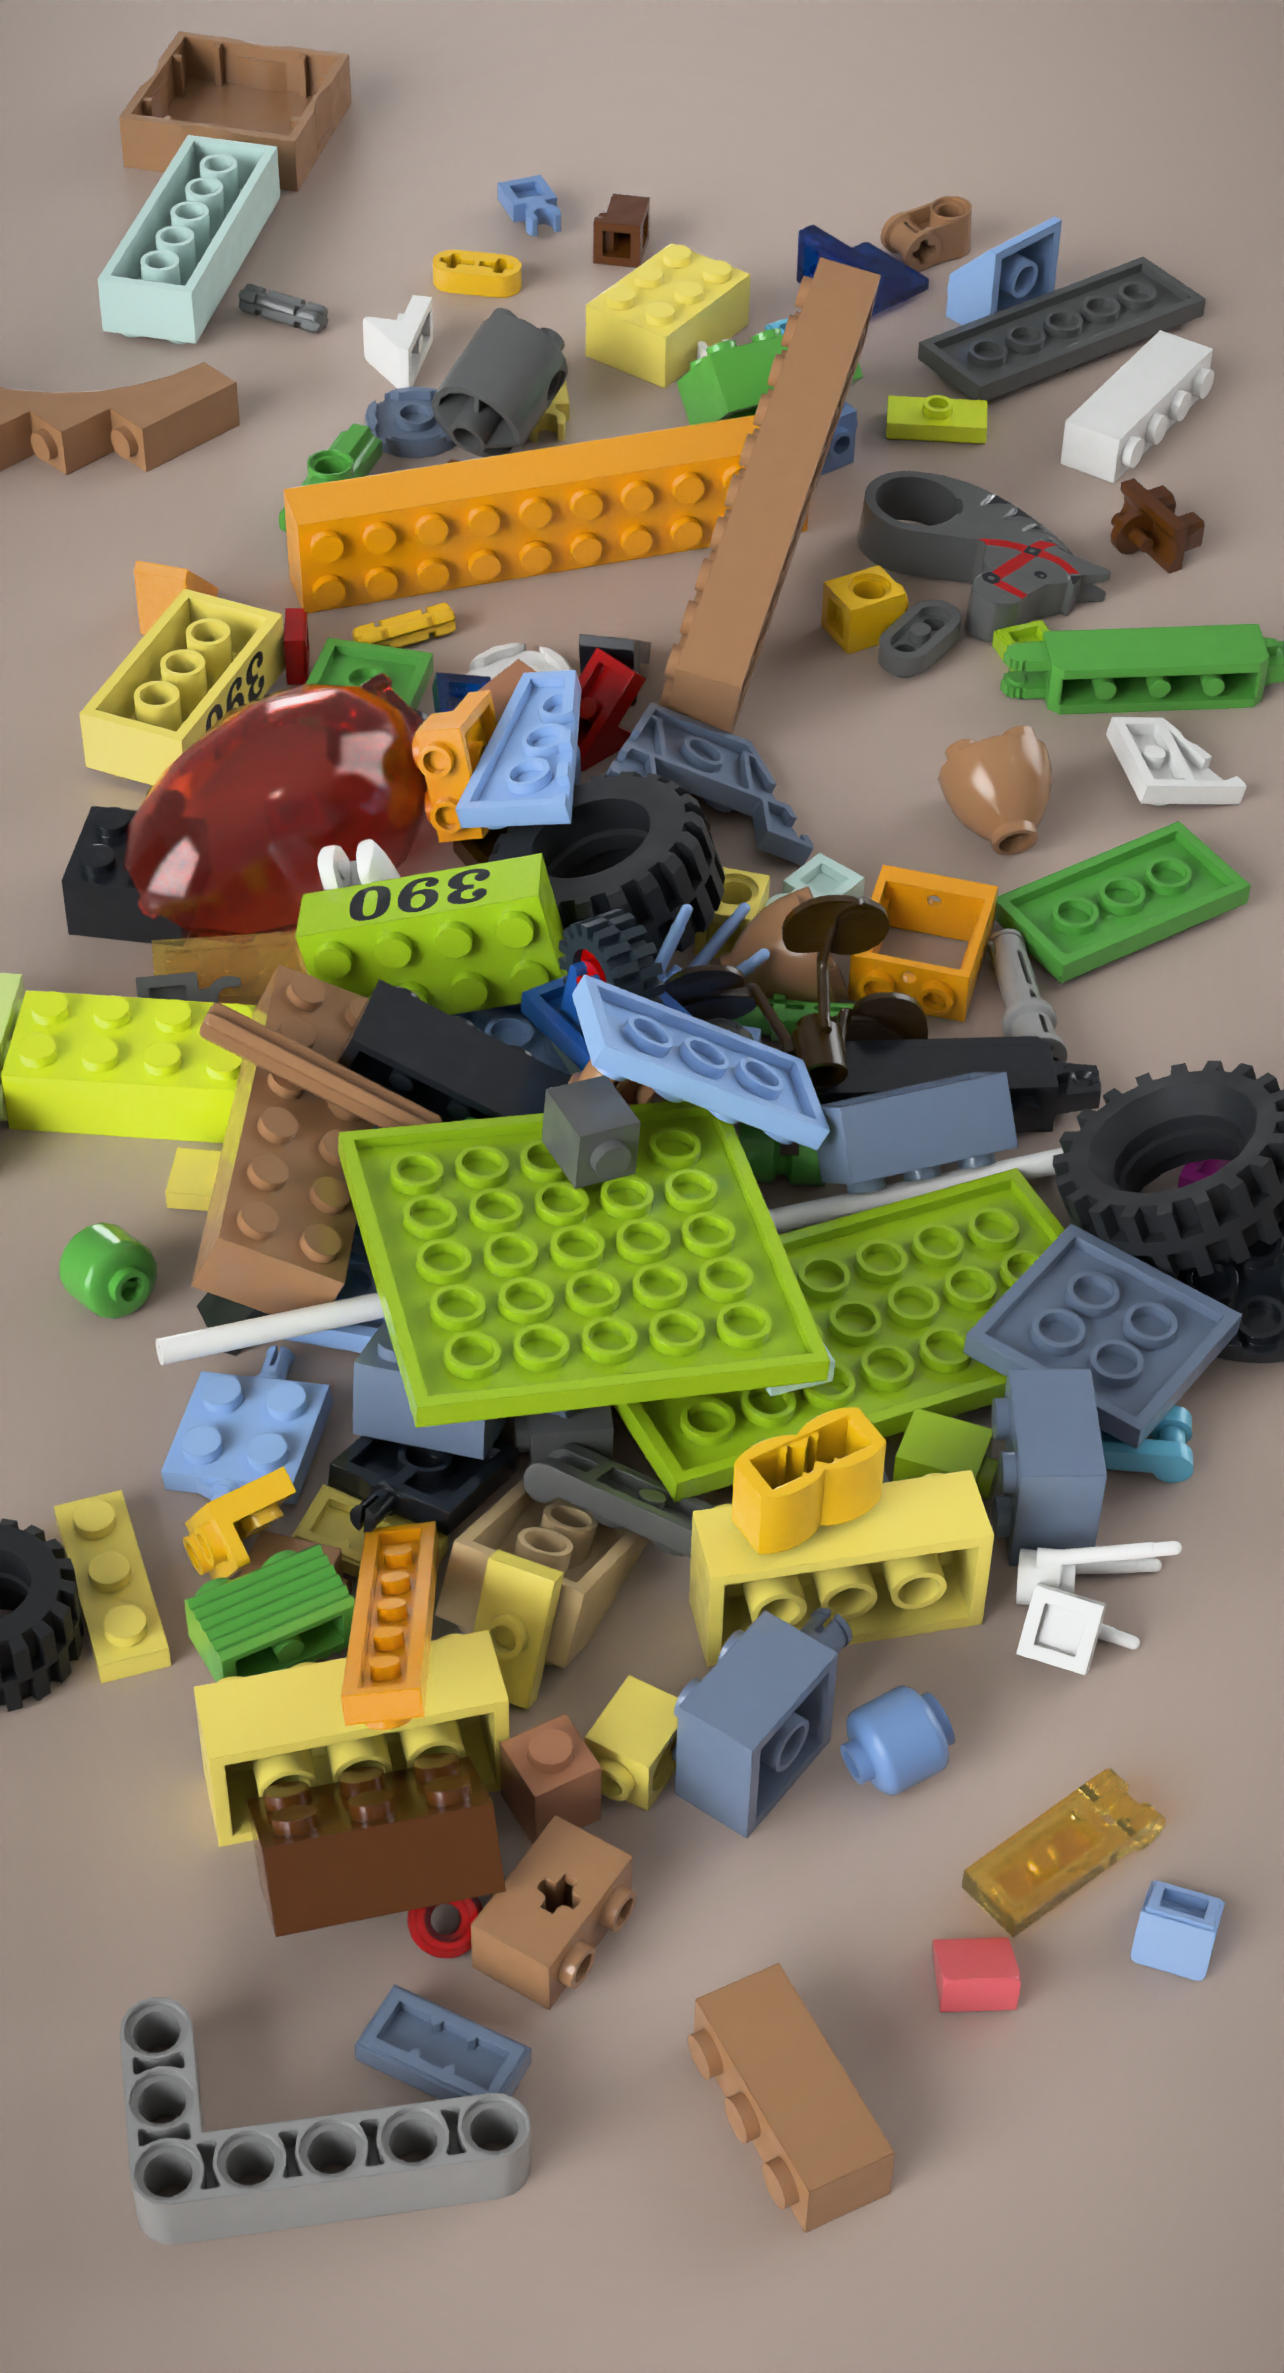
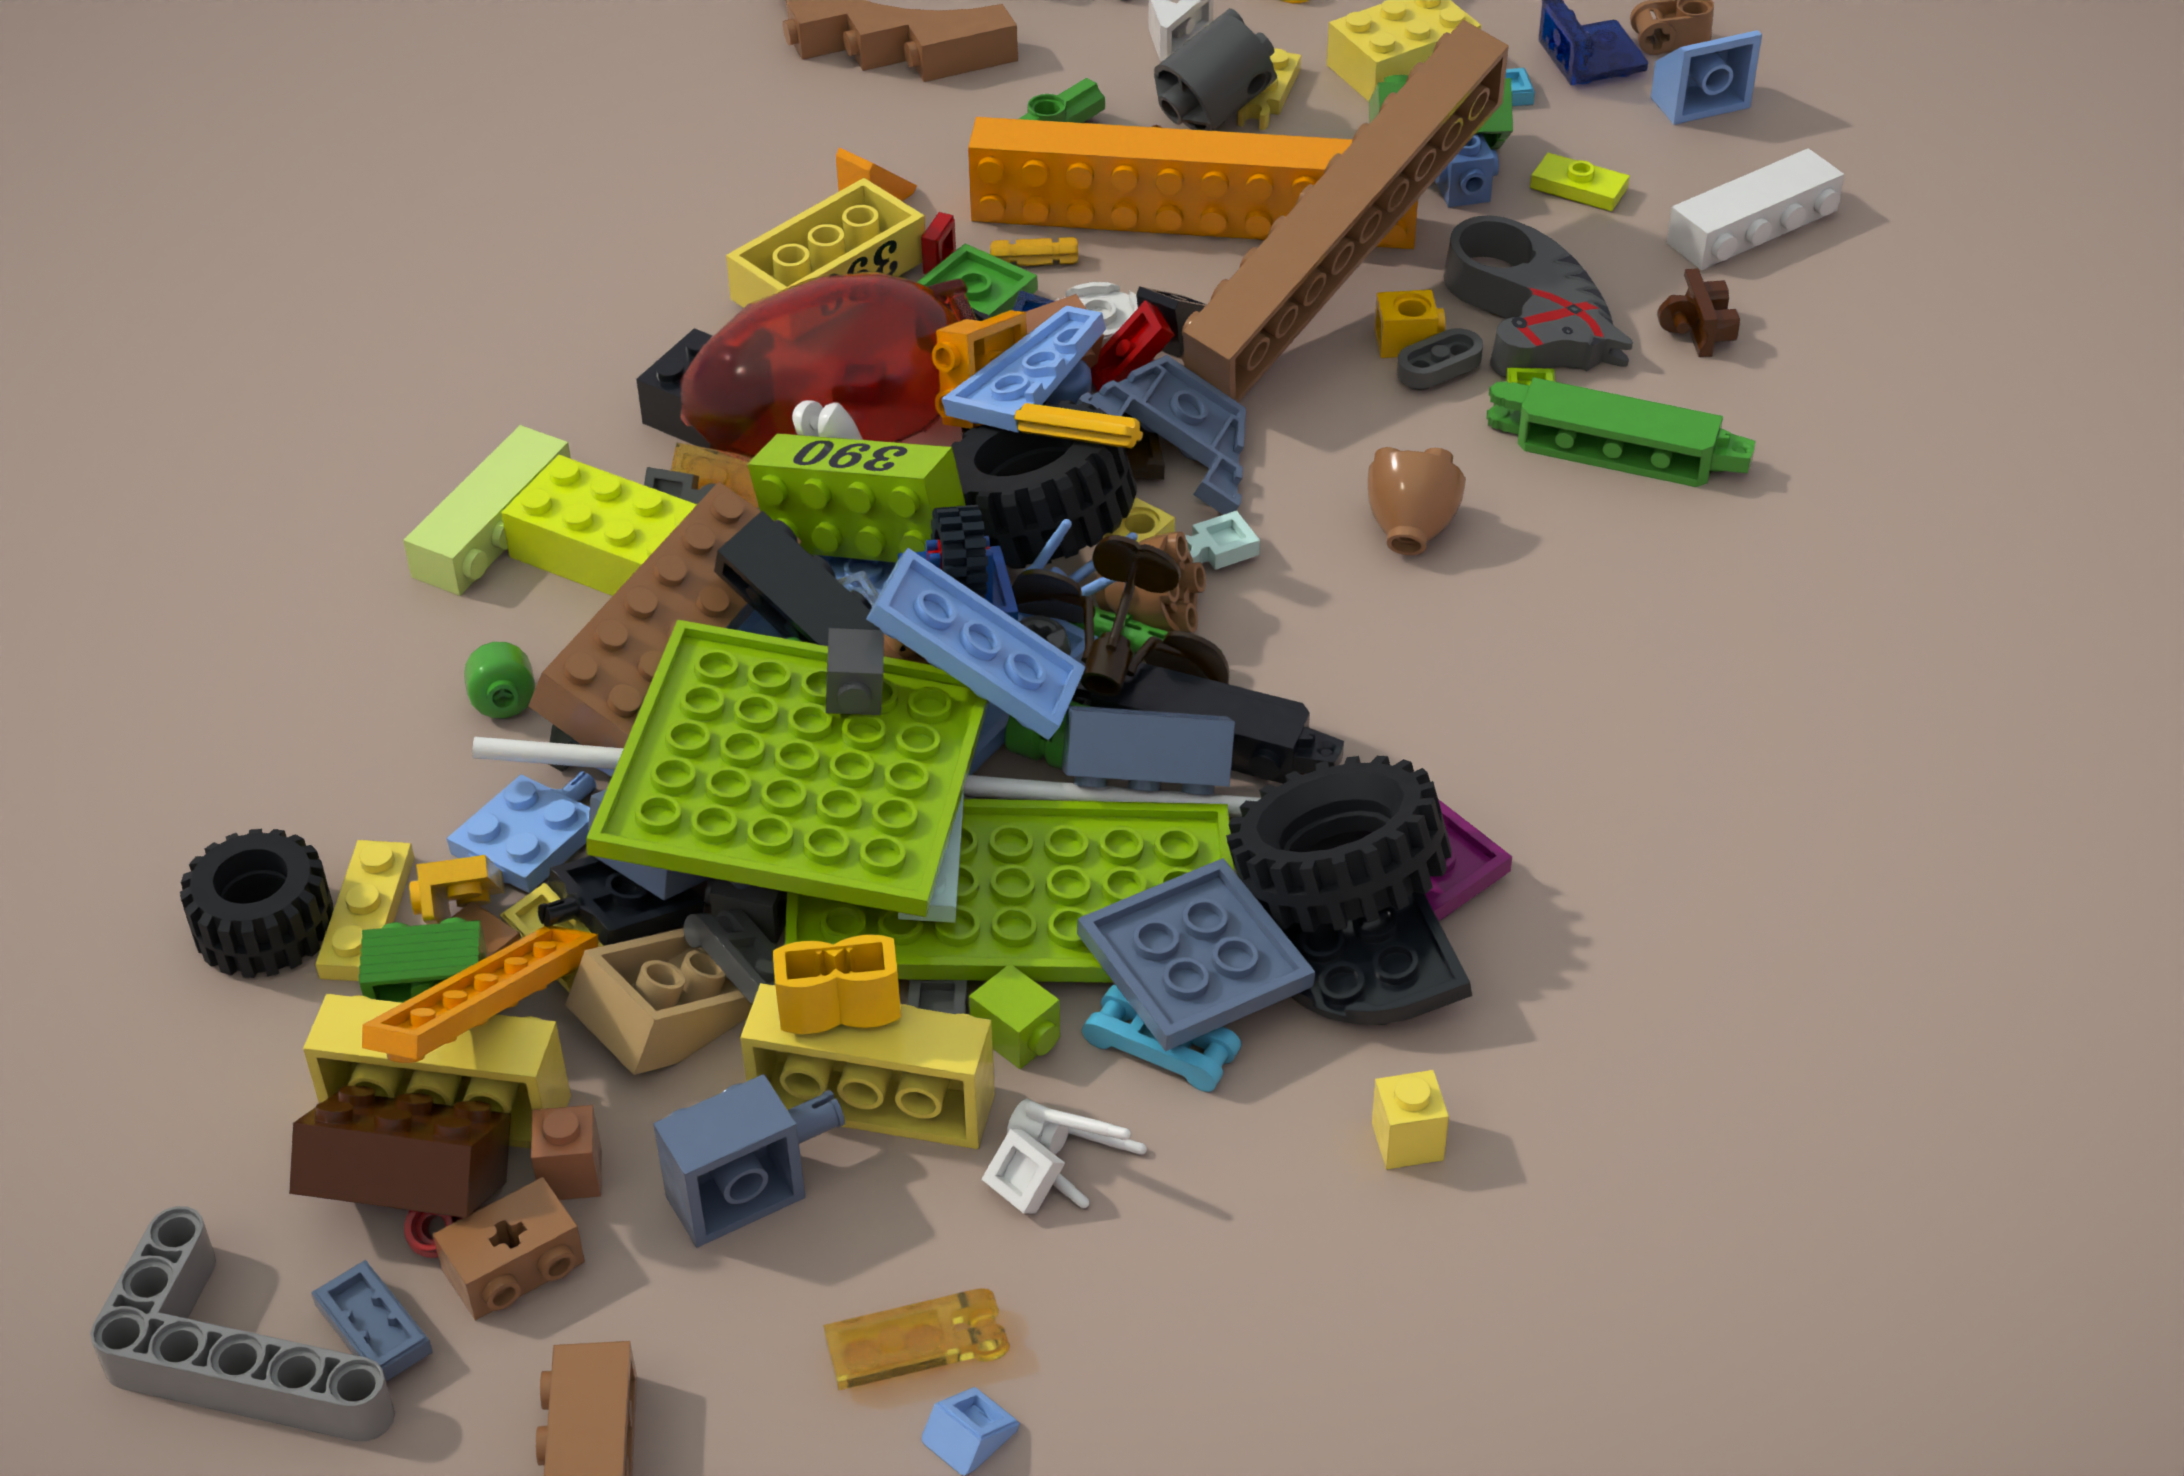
camera: 25 degrees right, 0 degrees up
(311, 1070) = (686, 568): medium nougat axle -> none
(408, 423) = (1135, 90): sand blue tile -> none
(519, 1612) = (602, 1031): light yellow plate -> none
(635, 1743) = (632, 1148): light yellow brick -> none
(652, 795) = (1078, 425): none -> yellow axle
(897, 1740) = (838, 1211): medium blue head -> none
(962, 914) = (1273, 564): light orange window -> none
(976, 1974) = (790, 1406): coral slope -> none
(1019, 989) = (1322, 688): light grey pin -> none
(1050, 1463) = (1078, 1036): sand blue brick -> none
(1060, 329) = (1736, 129): dark grey plate -> none
(1121, 901) = (1463, 615): bright green plate -> none
(1167, 766) = (1580, 516): white wing -> none

